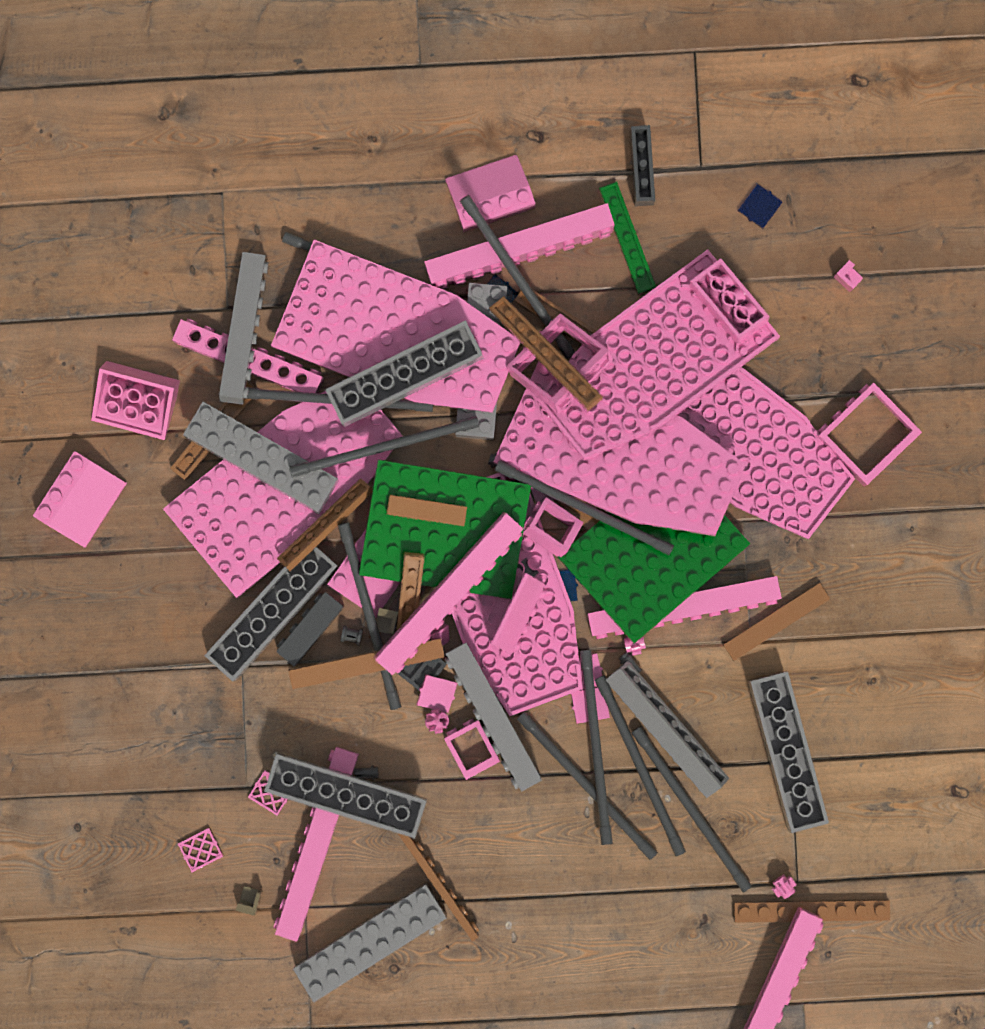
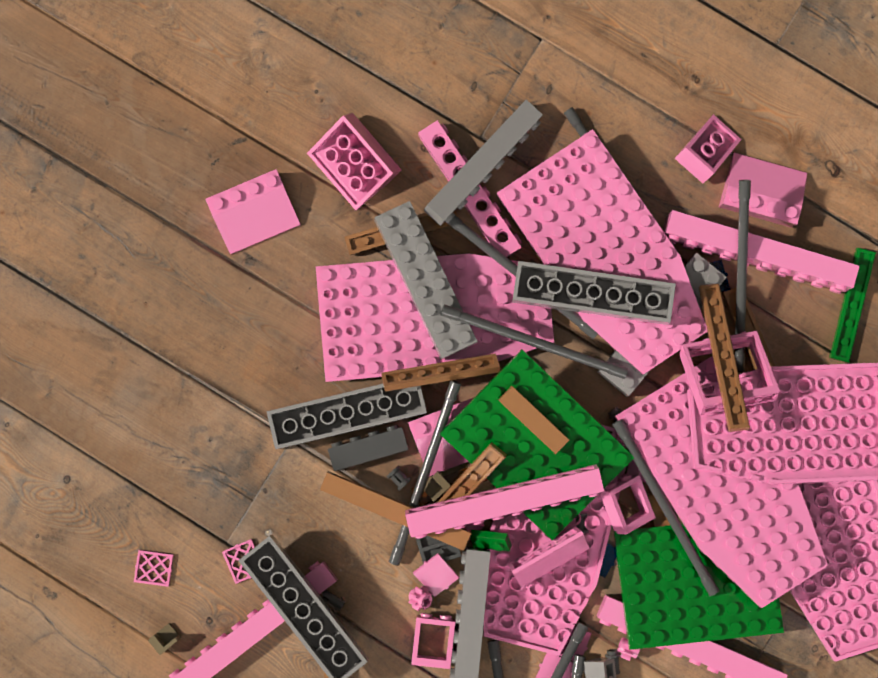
camera: 35 degrees right, 0 degrees up
(421, 190) = (708, 149): none -> bright pink slope
(461, 634) = (490, 540): none -> green plate

